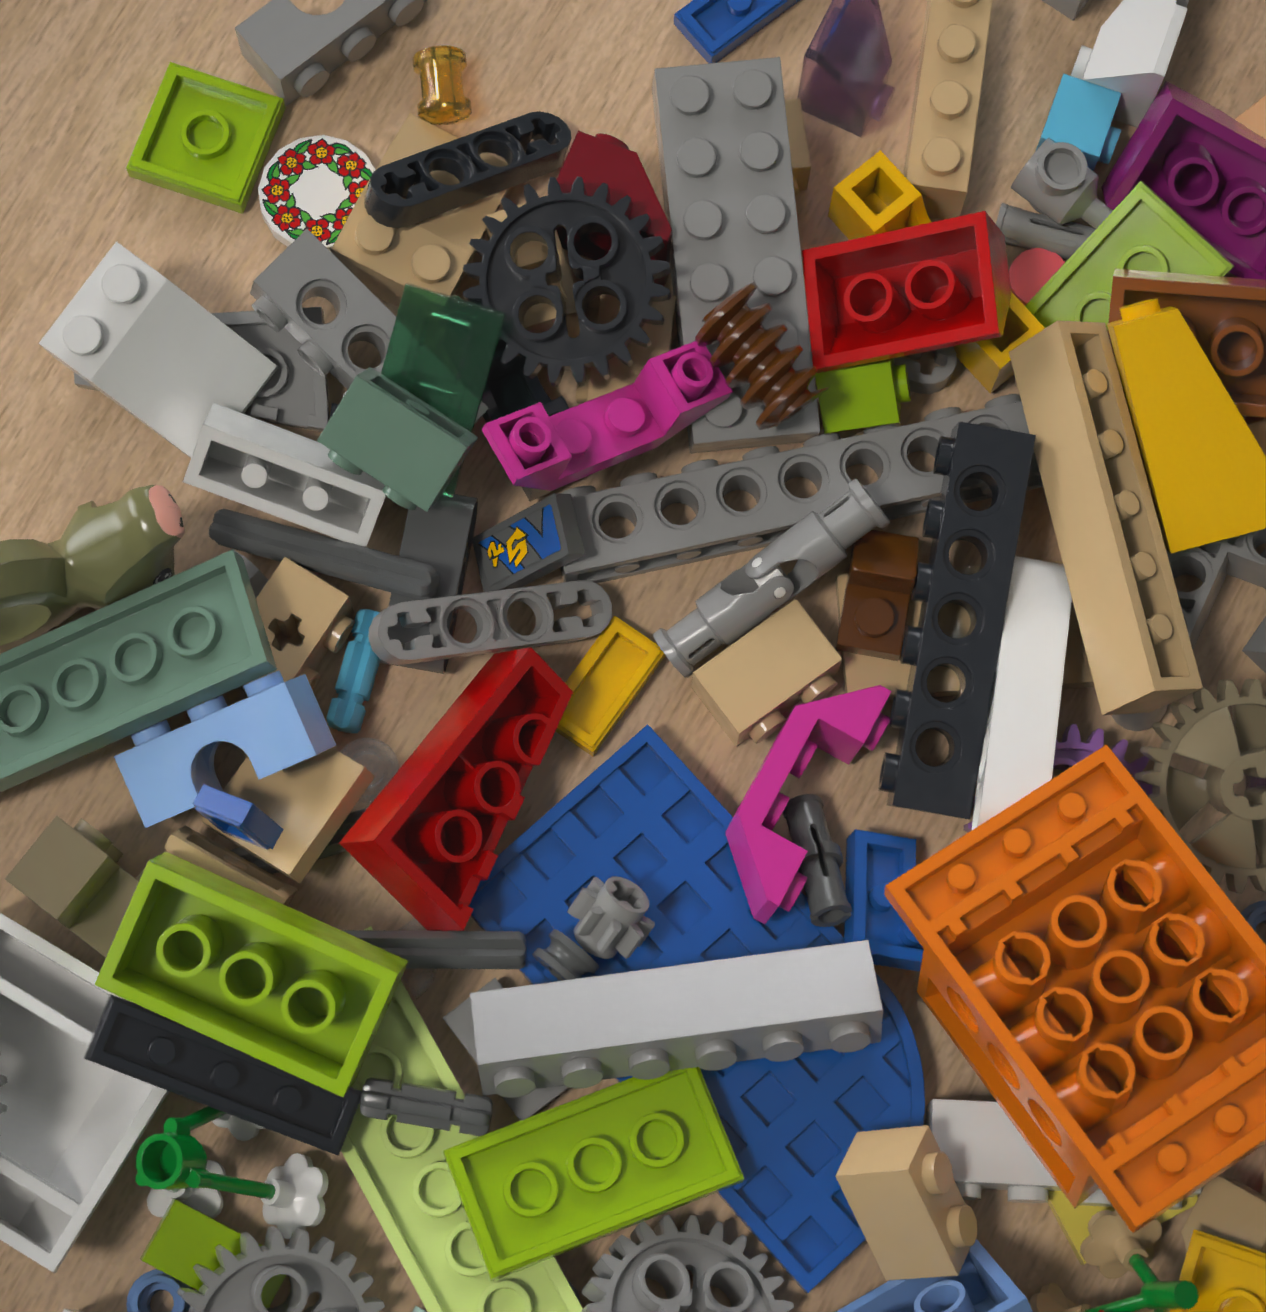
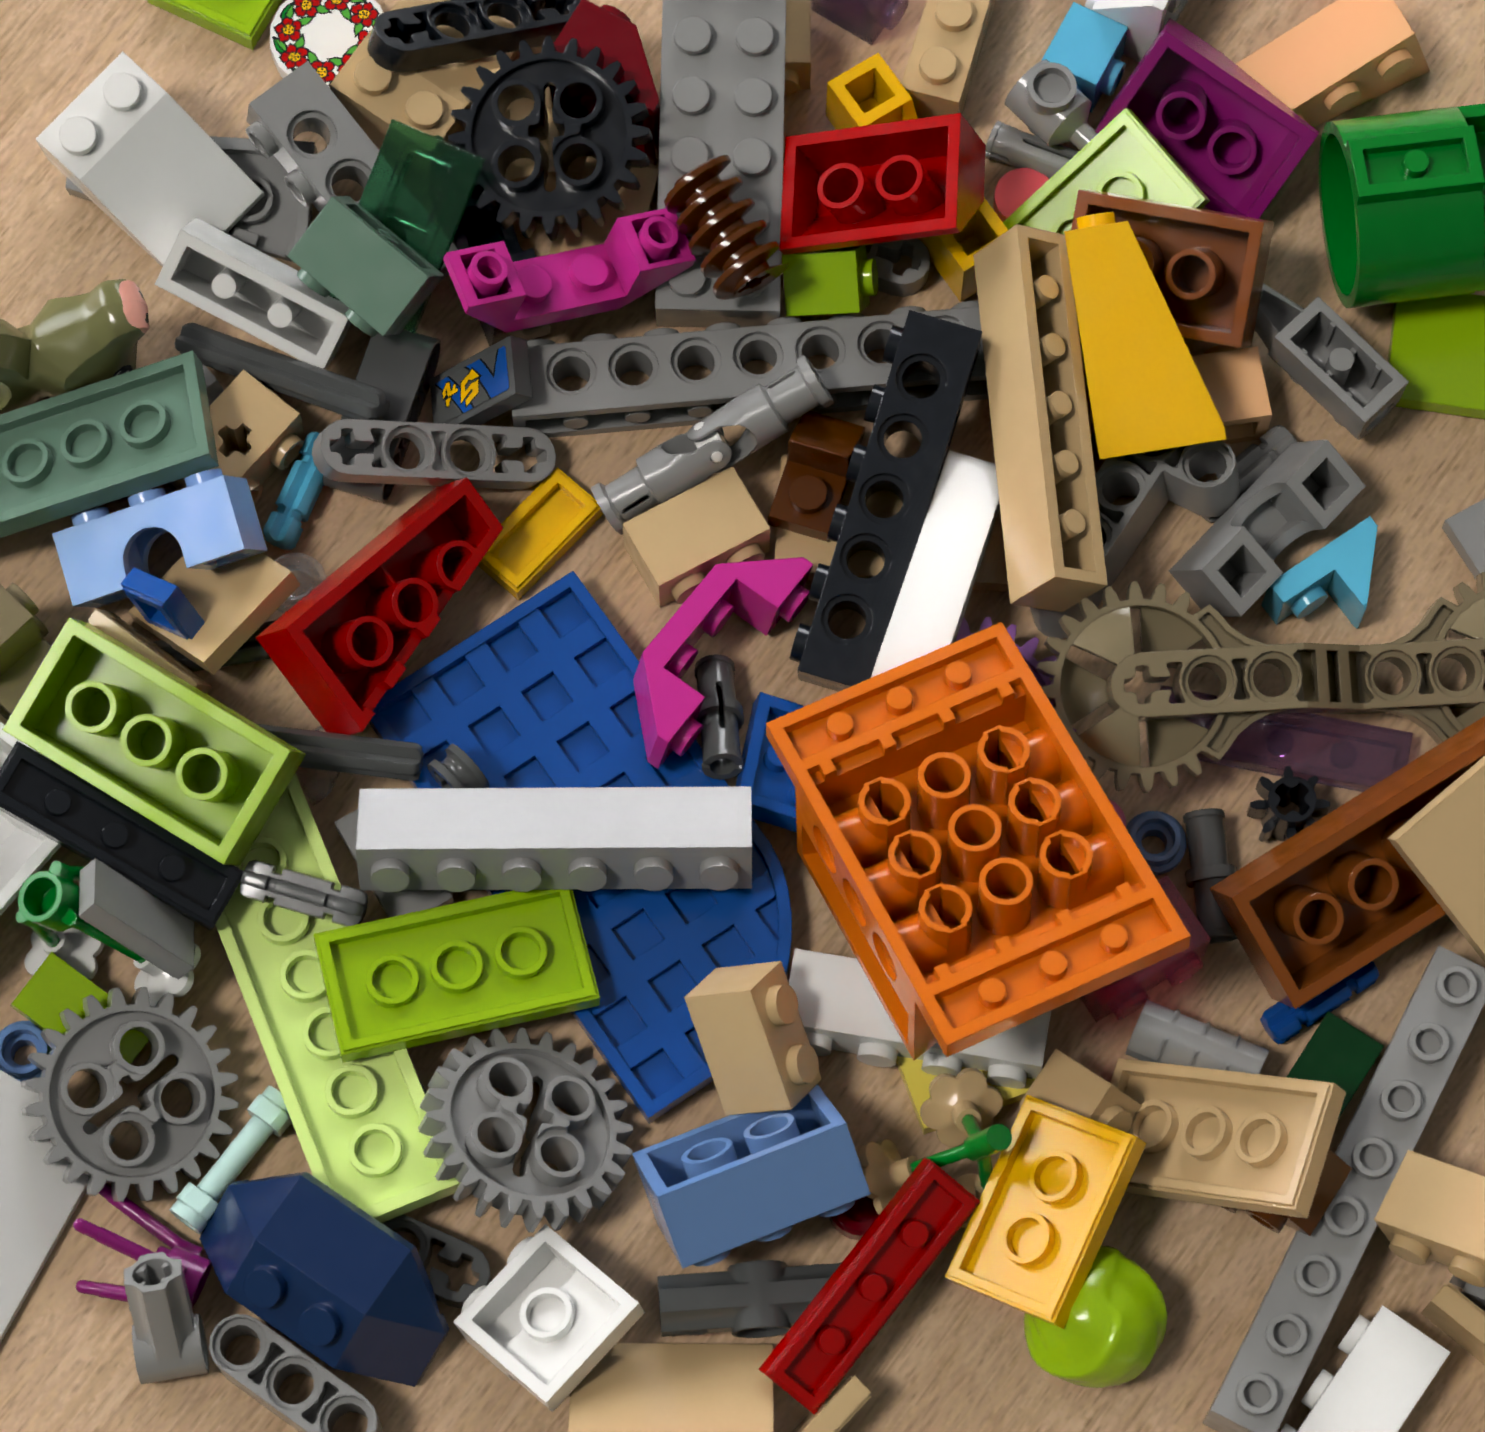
camera: 10 degrees right, 5 degrees down
(259, 1162) = (136, 919): none -> light grey tile
(611, 917) = (507, 739): light grey gear -> none

